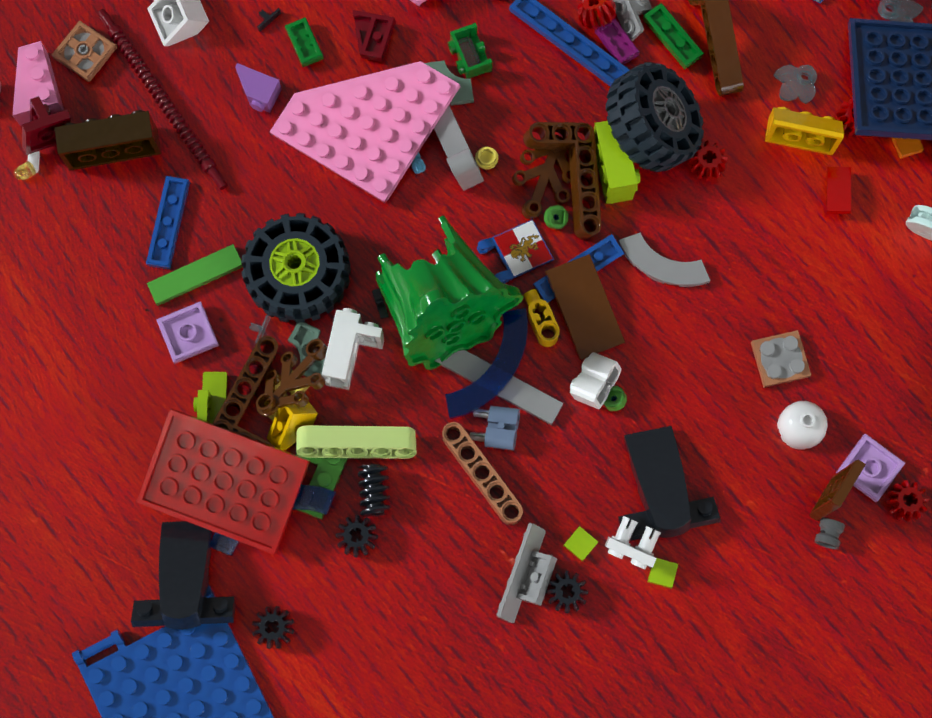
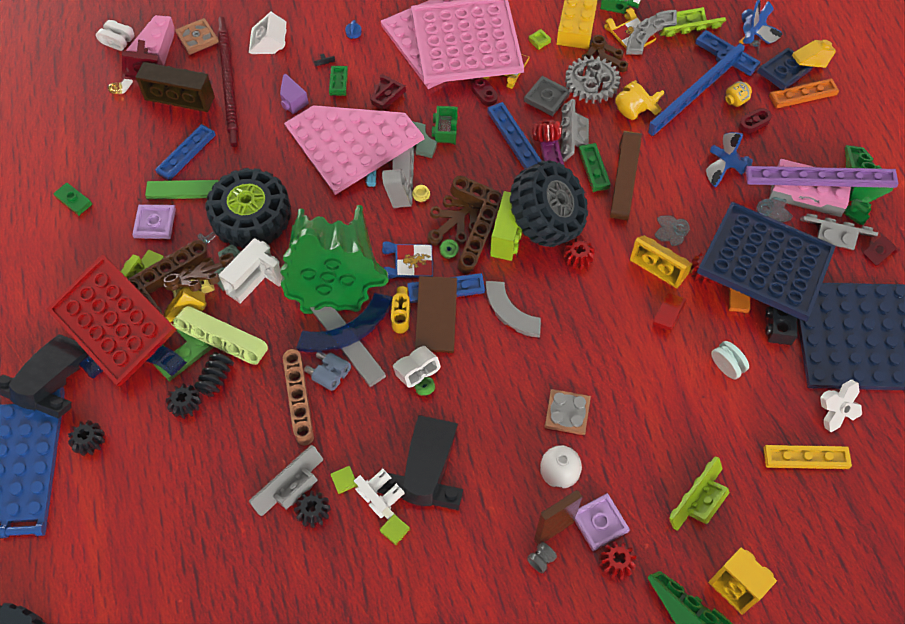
camera: 25 degrees right, 15 degrees down
(66, 345) = (72, 199): none -> green plate

